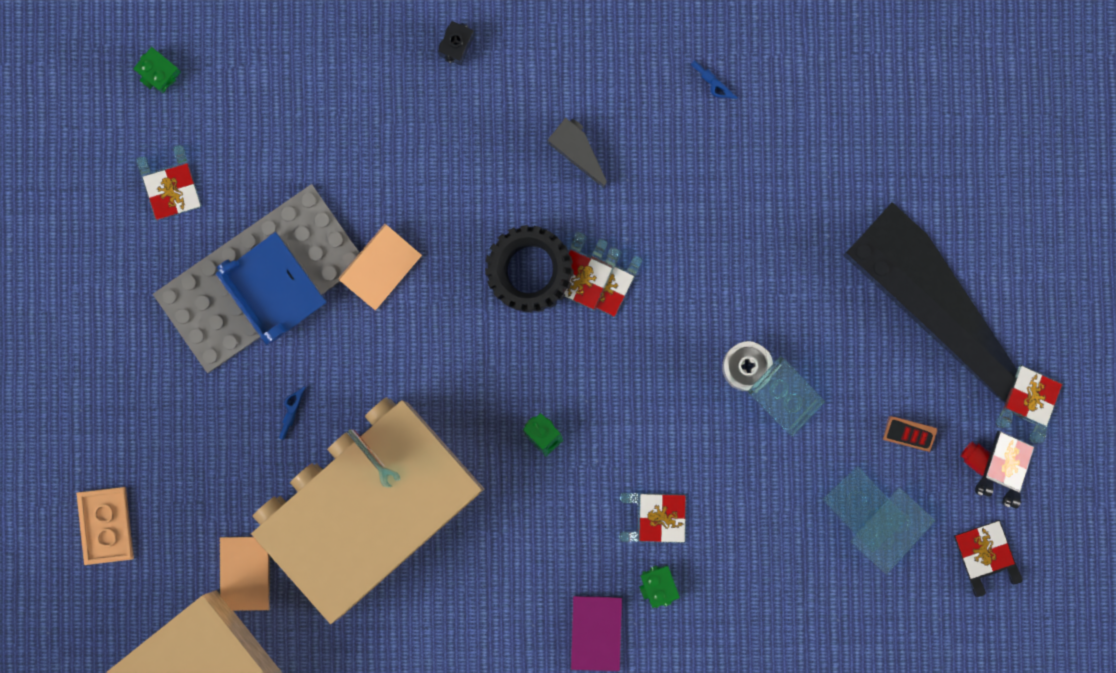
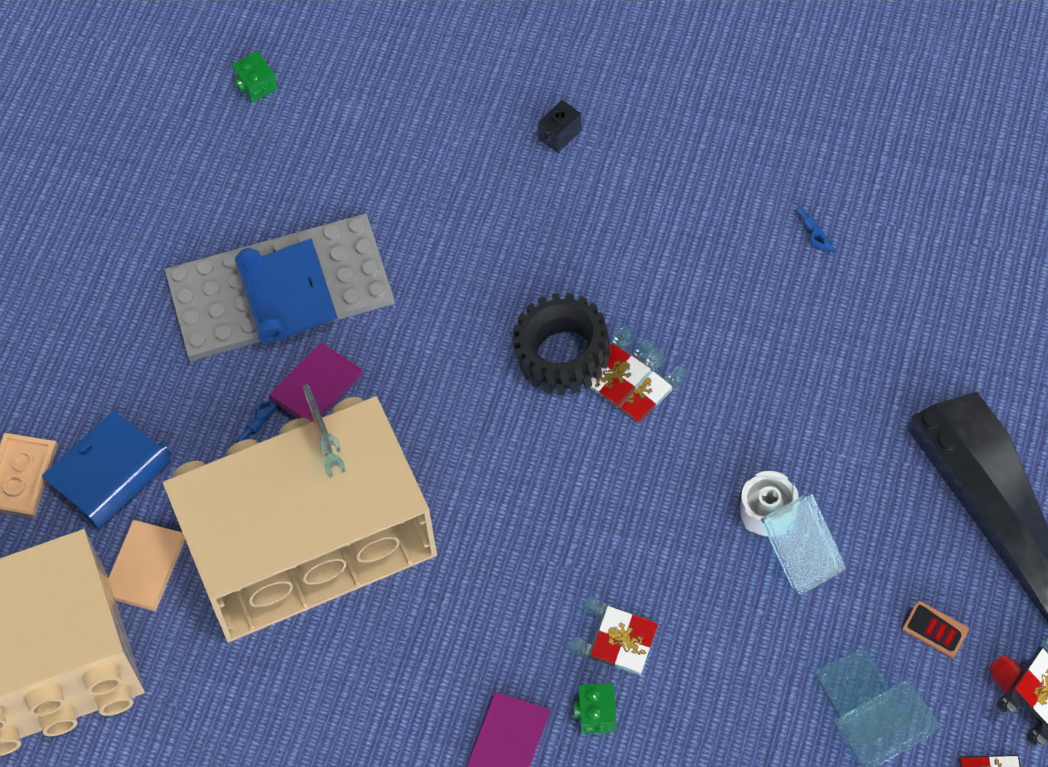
camera: 20 degrees right, 25 degrees down
(170, 188) = (224, 183): flag -> none
(183, 502) = (107, 468): none -> blue door
(328, 366) = (327, 376): none -> magenta tile
(380, 267) = (406, 304): light nougat tile -> none
(542, 434) = (519, 509): green head -> none
(574, 146) = (648, 247): dark grey slope -> none

